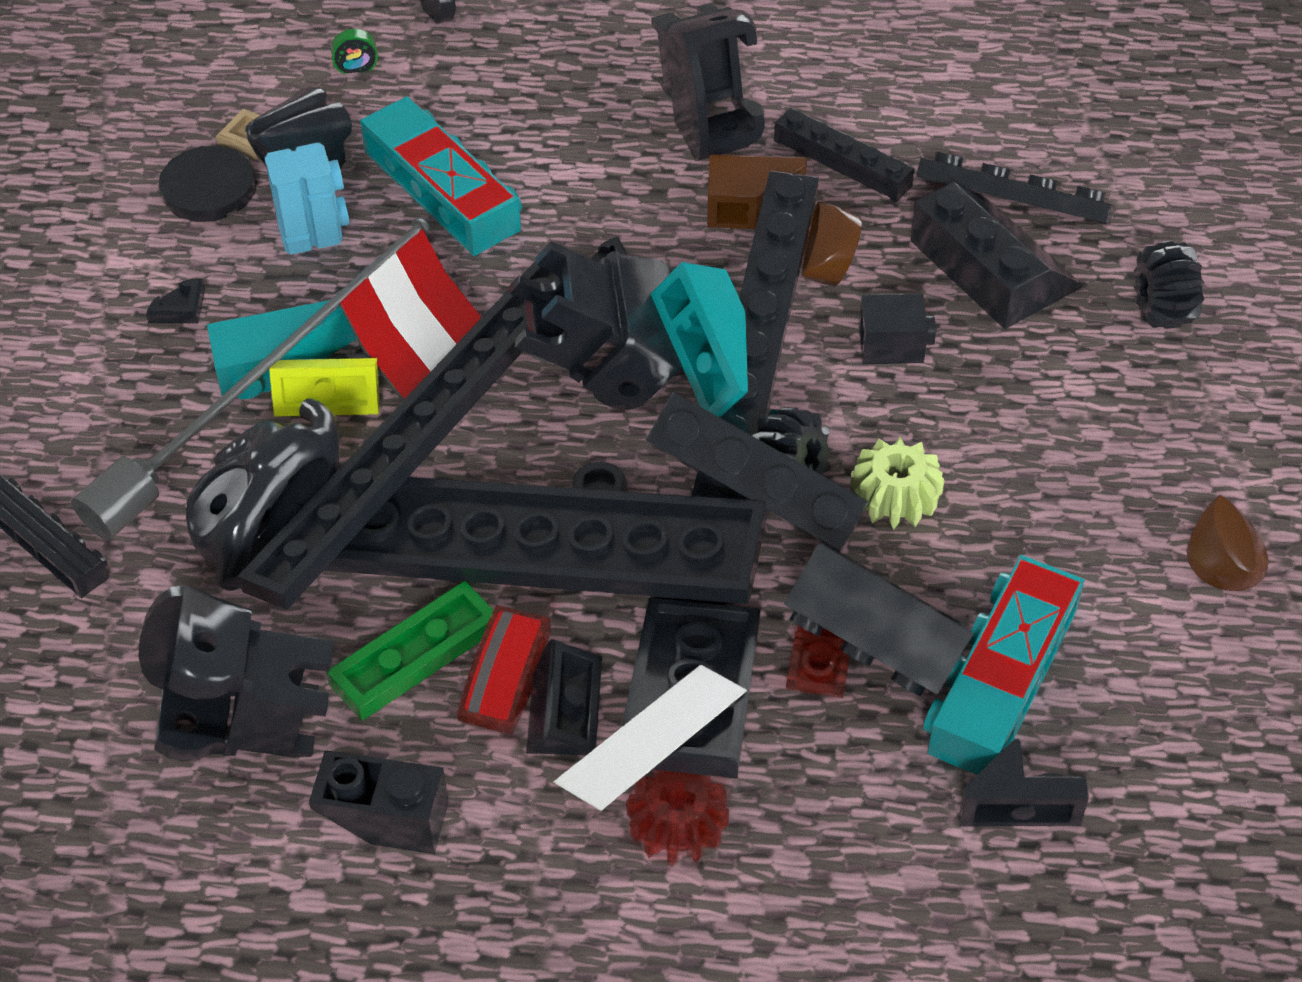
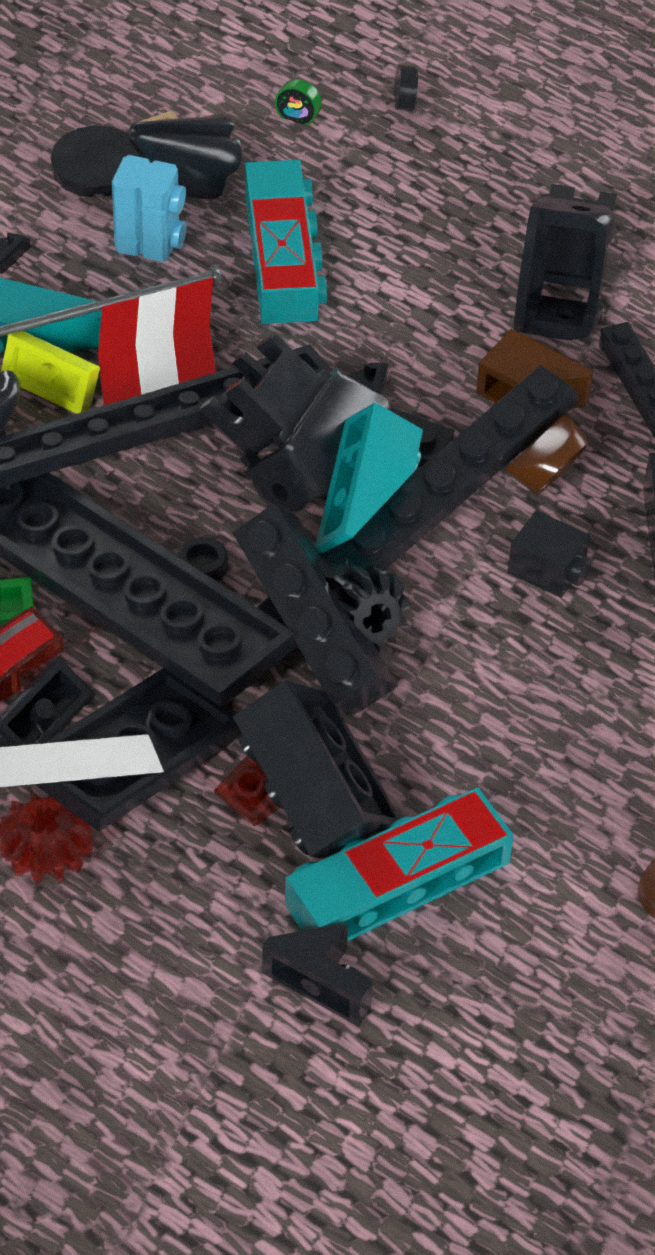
camera: 30 degrees right, 0 degrees up
(898, 481) = (440, 680): yellowish green gear -> none

